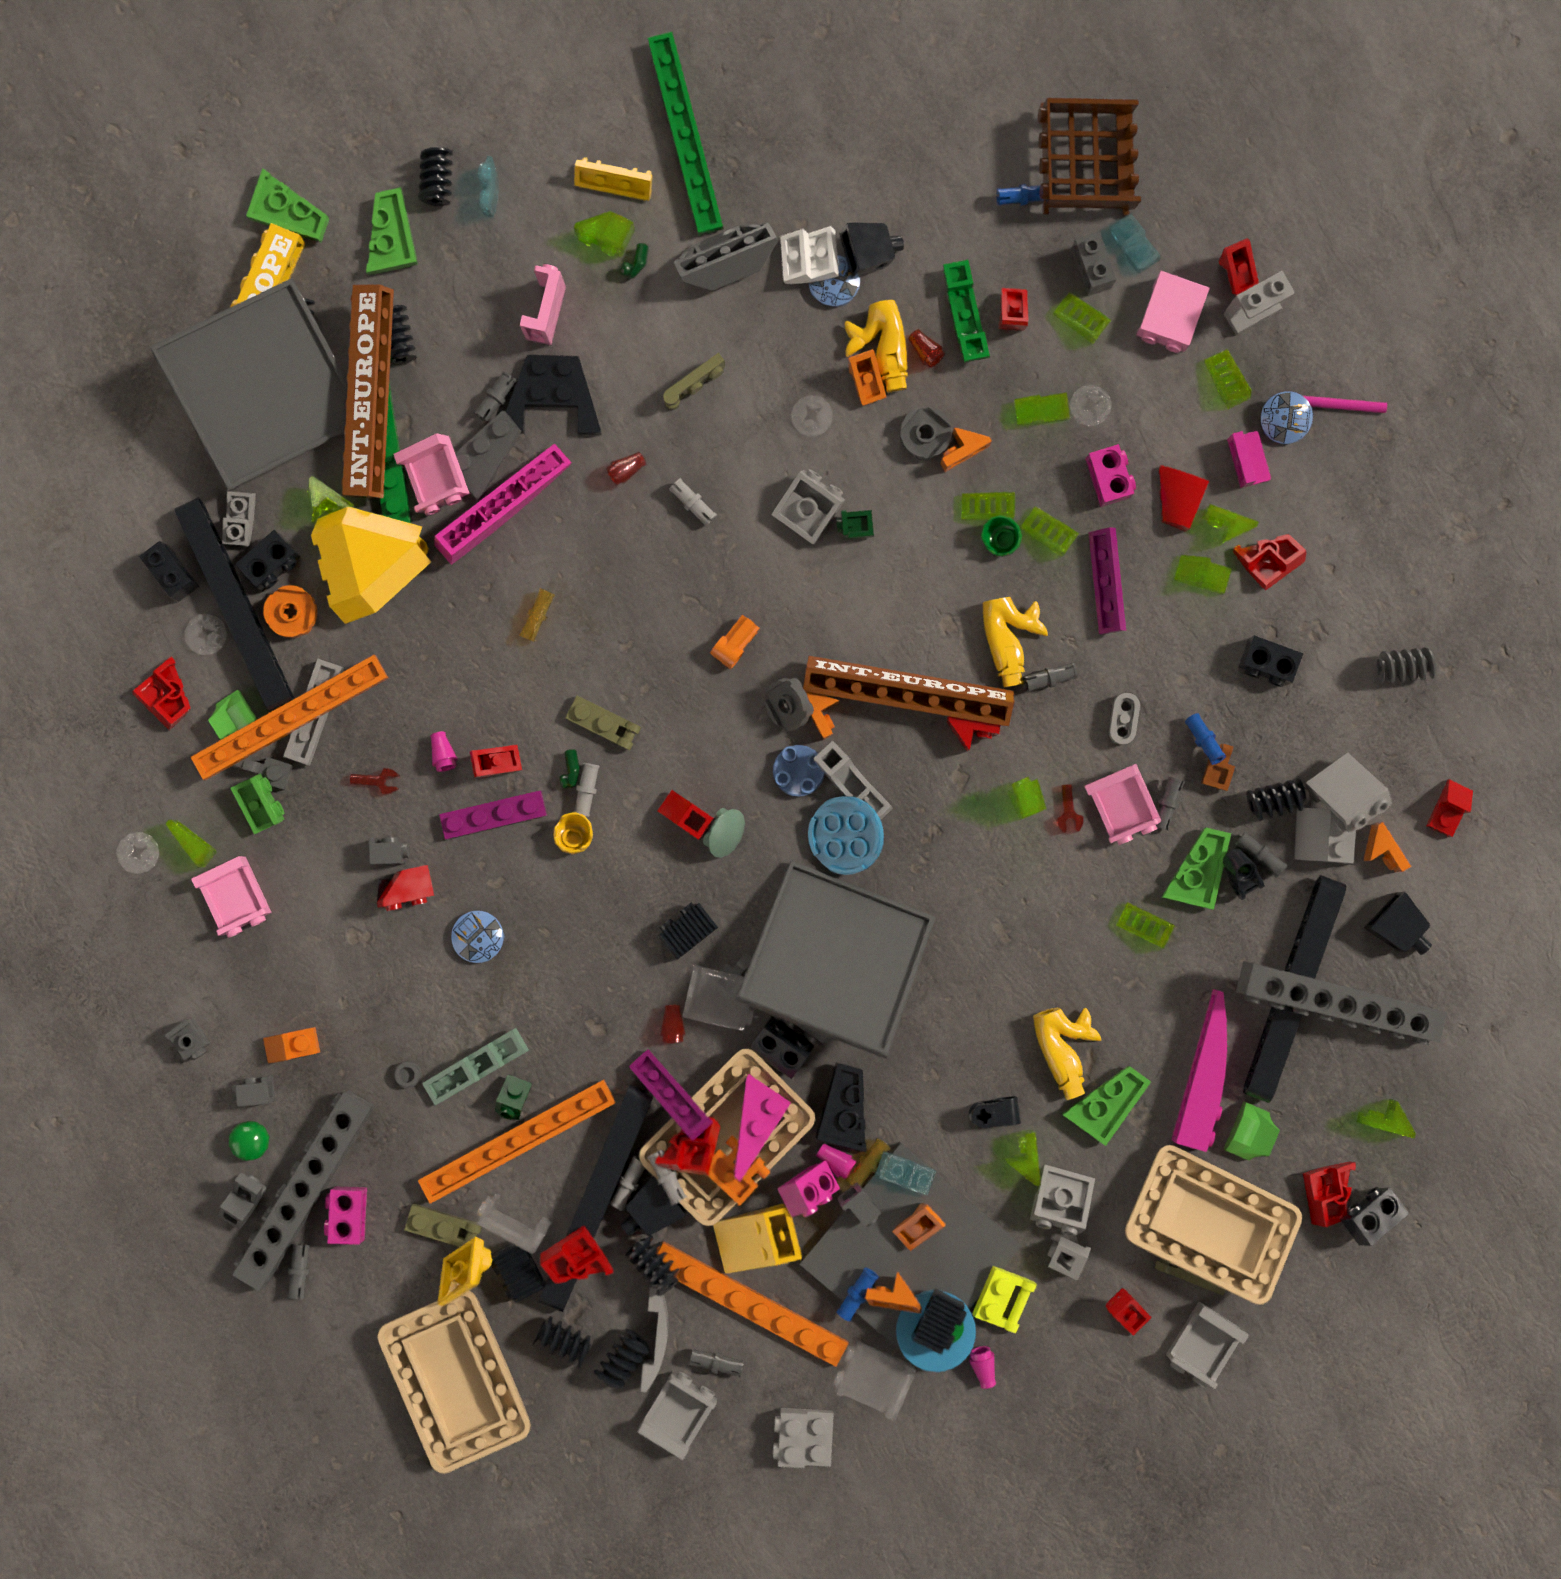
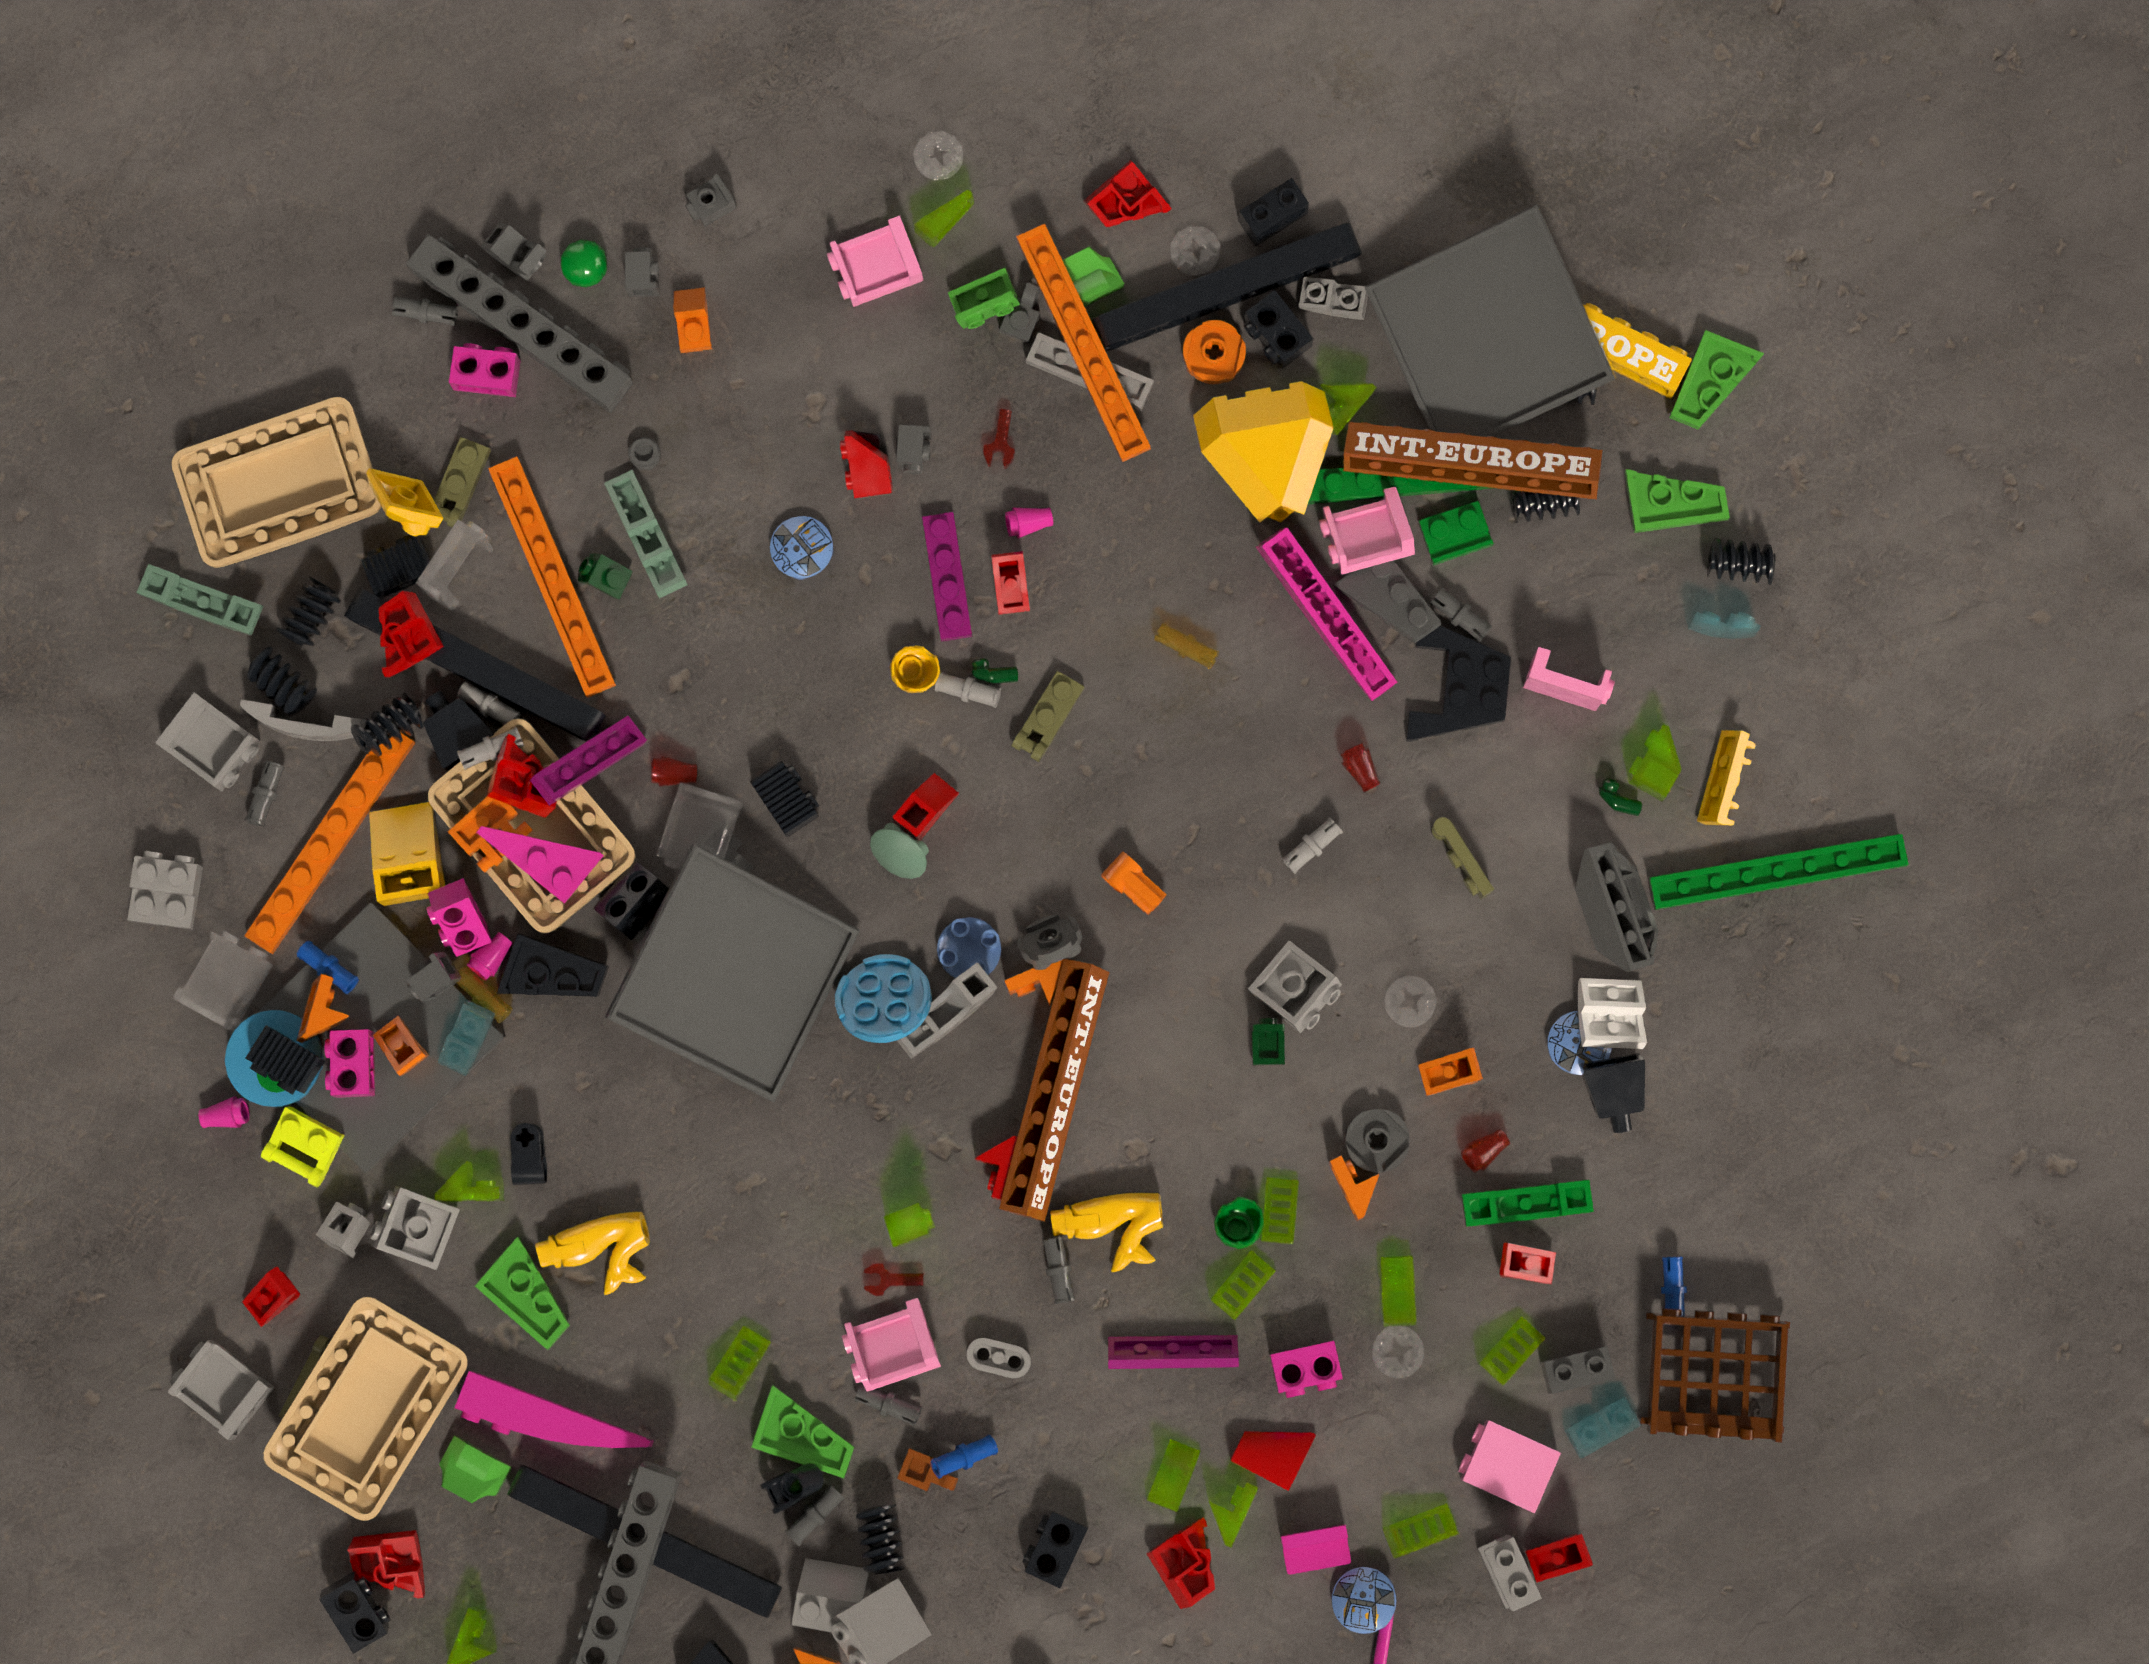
camera: 100 degrees right, 5 degrees down
(428, 406) = (1455, 533): none -> green plate
(558, 1435) = (199, 600): none -> sand green slope
(891, 349) = (1488, 1107): yellow piece -> none
(935, 1258) = (360, 1062): none -> dark pink brick

